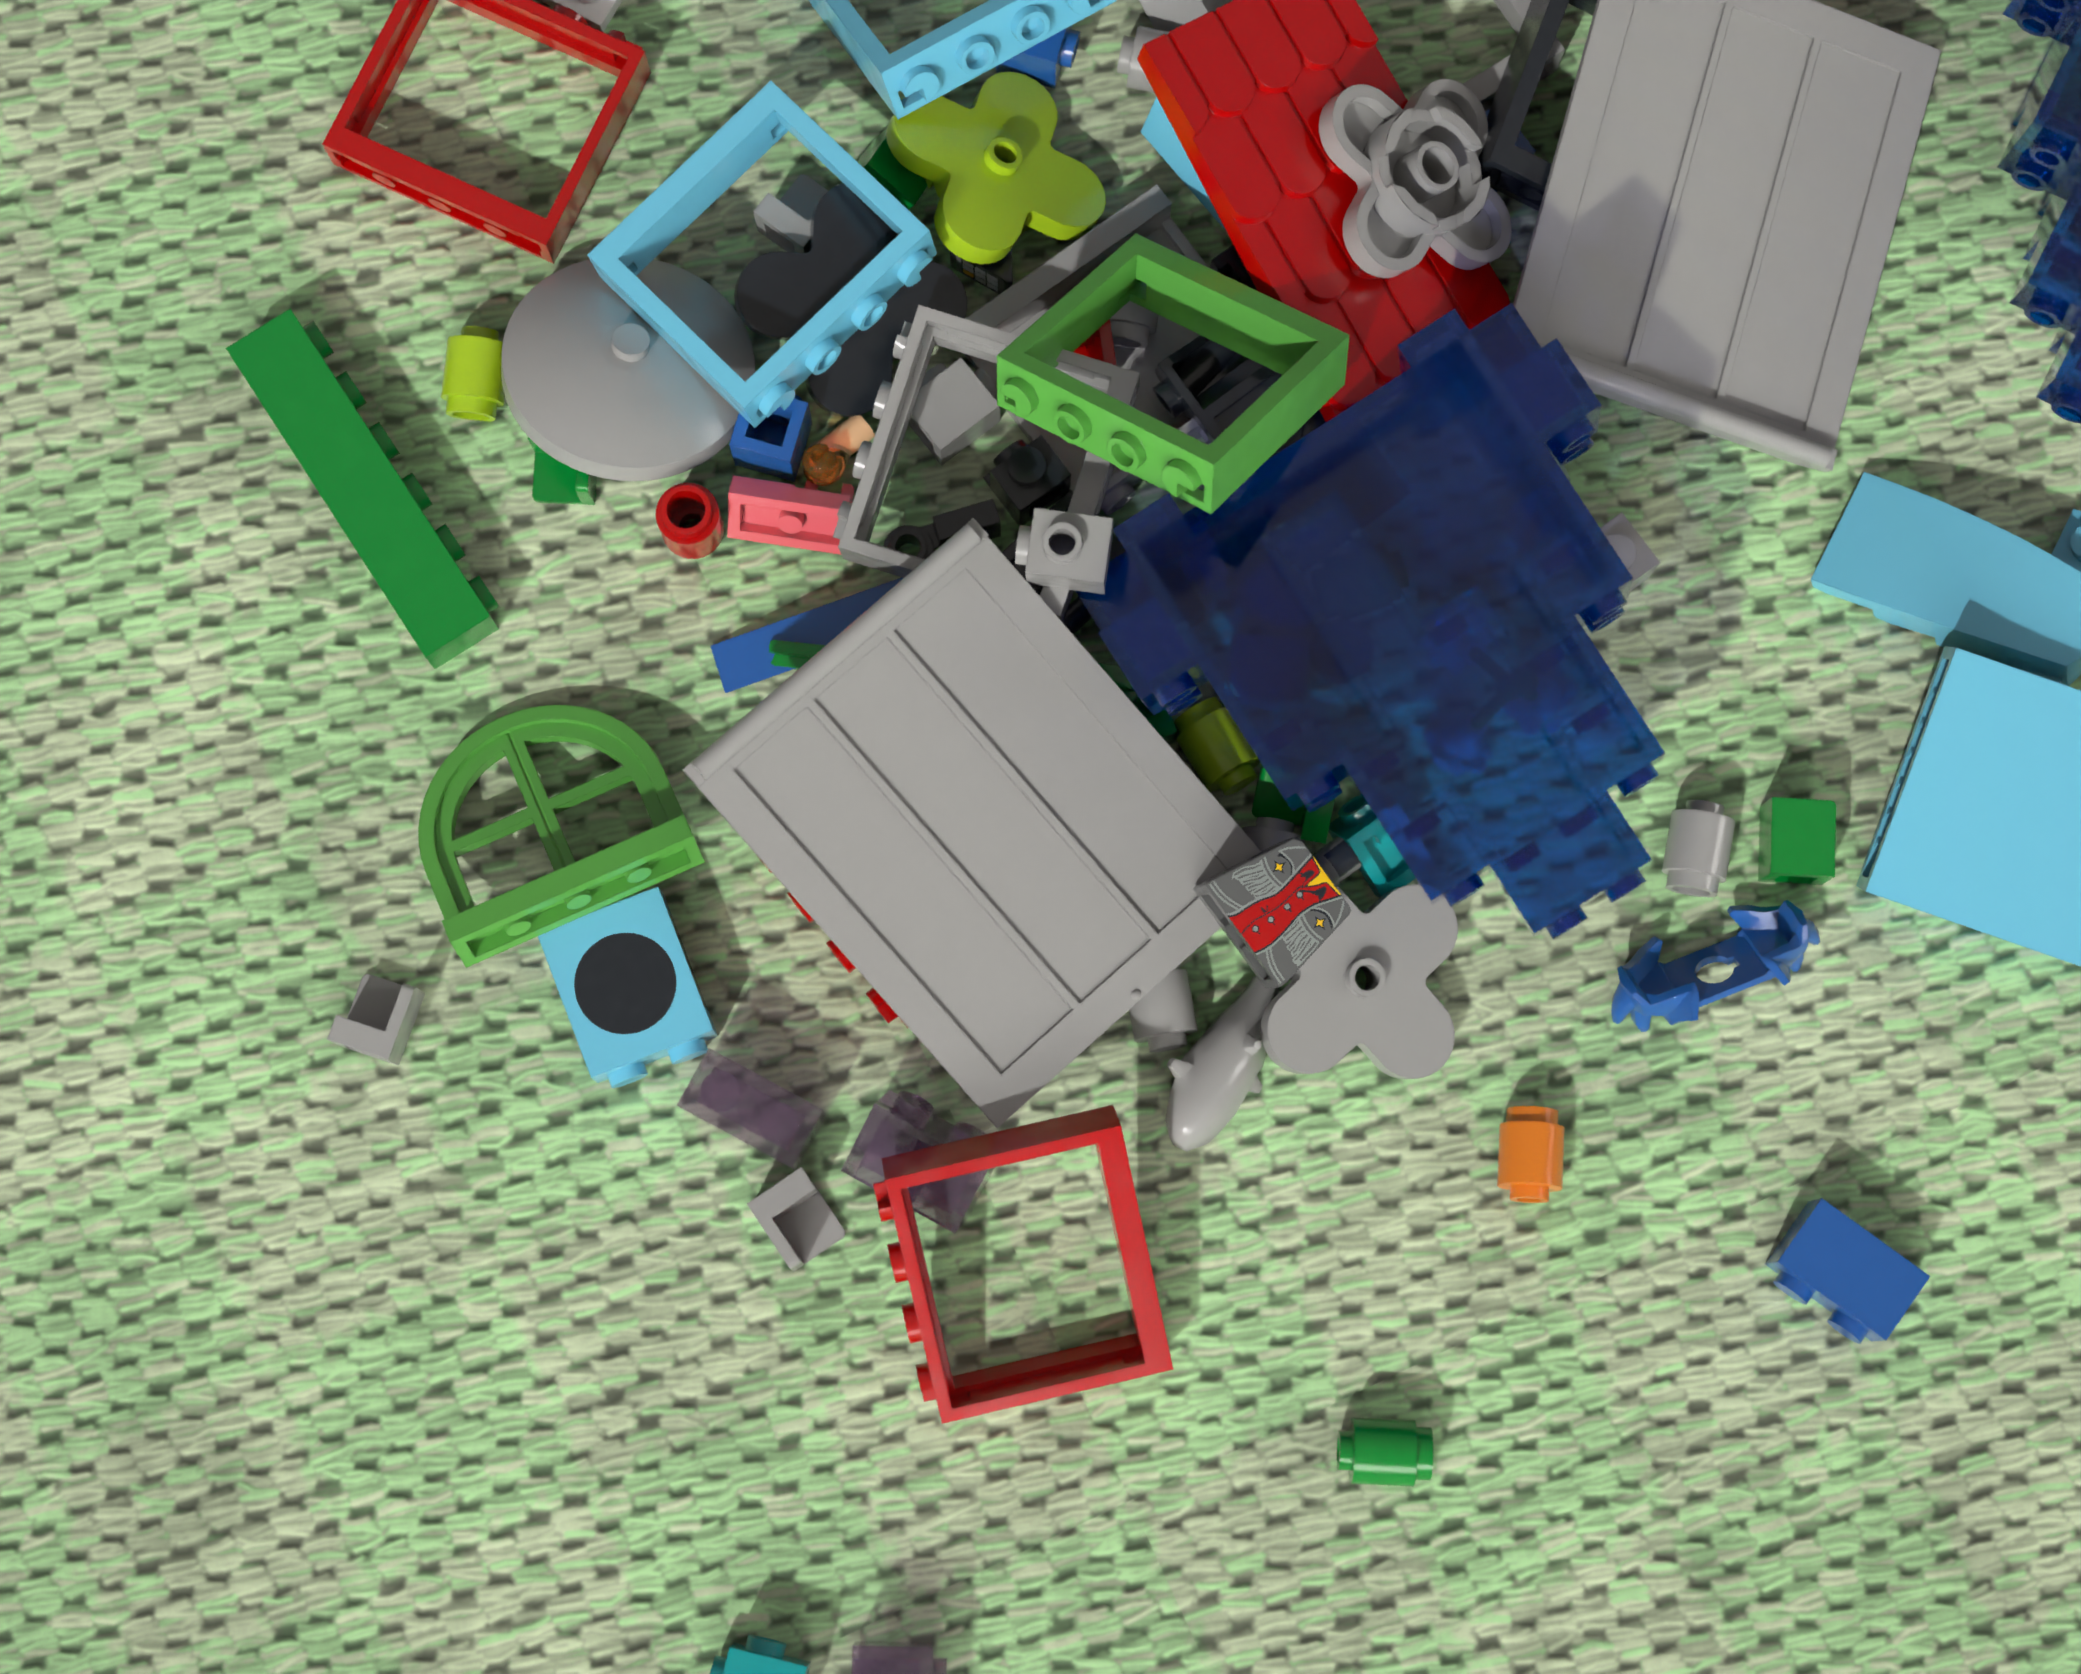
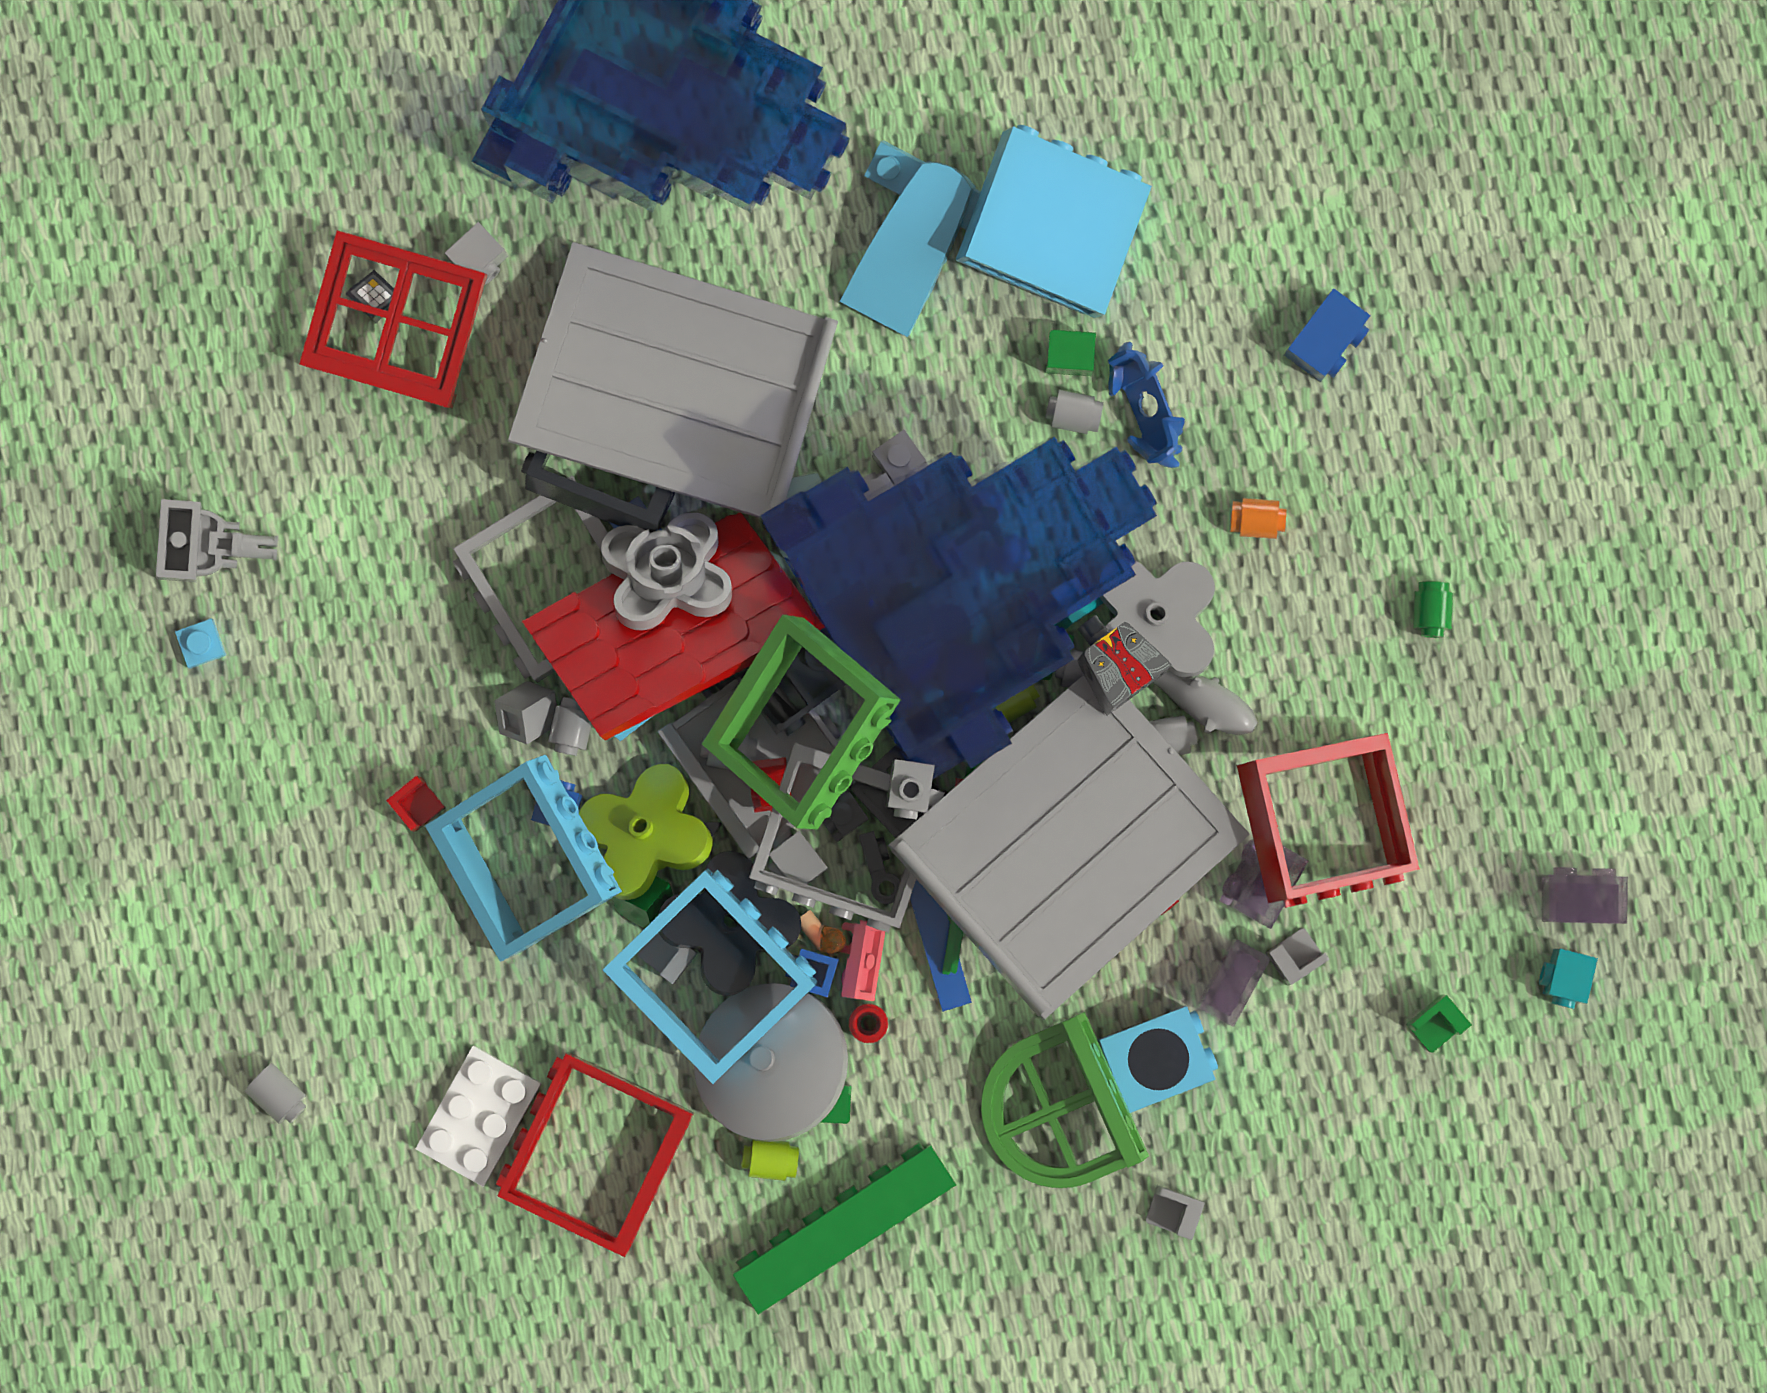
camera: 90 degrees left, 5 degrees up
(683, 1459) = (1438, 1023): none -> green panel

